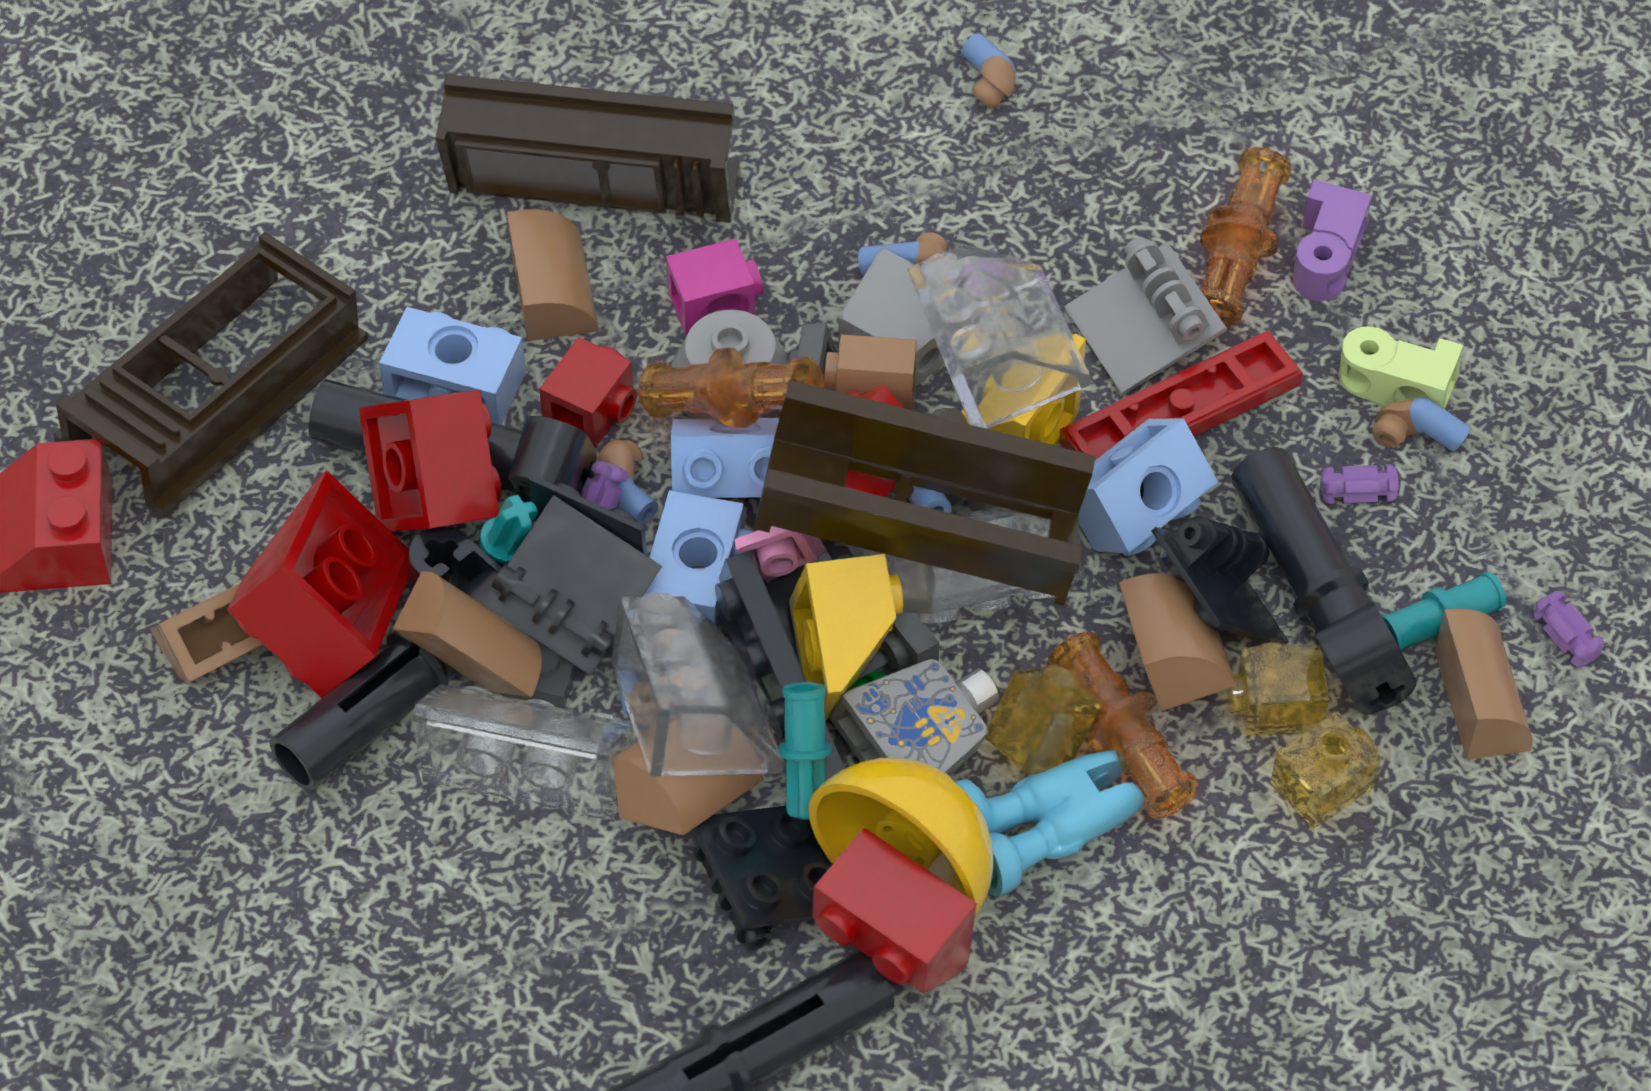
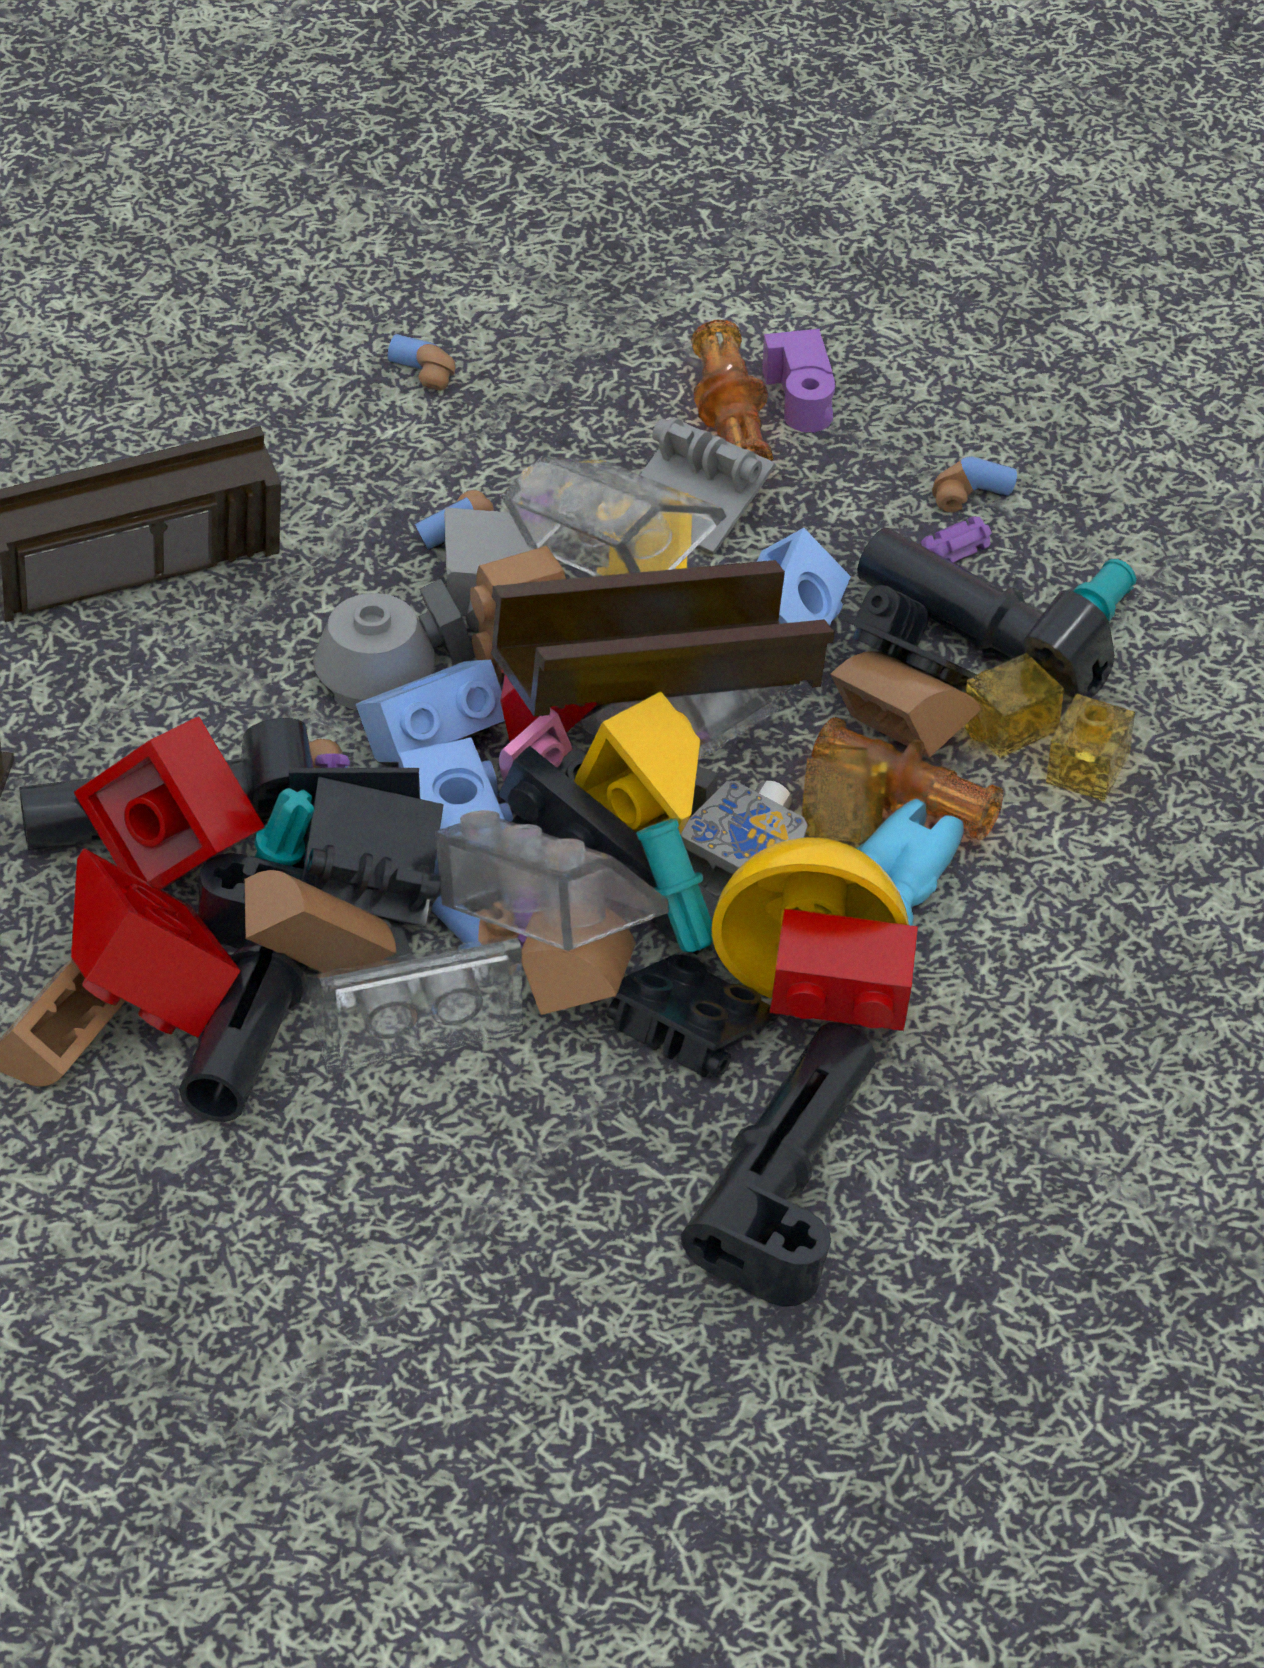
camera: 30 degrees left, 10 degrees down
(446, 356) = (105, 730): light blue brick -> none
(551, 275) = (150, 646): medium nougat brick -> none
(589, 389) = (253, 698): red brick -> none
(712, 281) = (303, 596): dark pink brick -> none
(724, 387) = (405, 648): clear orange piece -> none
(1199, 395) = (803, 500): red plate -> none
(1397, 371) = (921, 451): yellowish green leg -> none
(1481, 685) = (1163, 643): medium nougat brick -> none
(1568, 629) = (1195, 580): medium lavender piece -> none

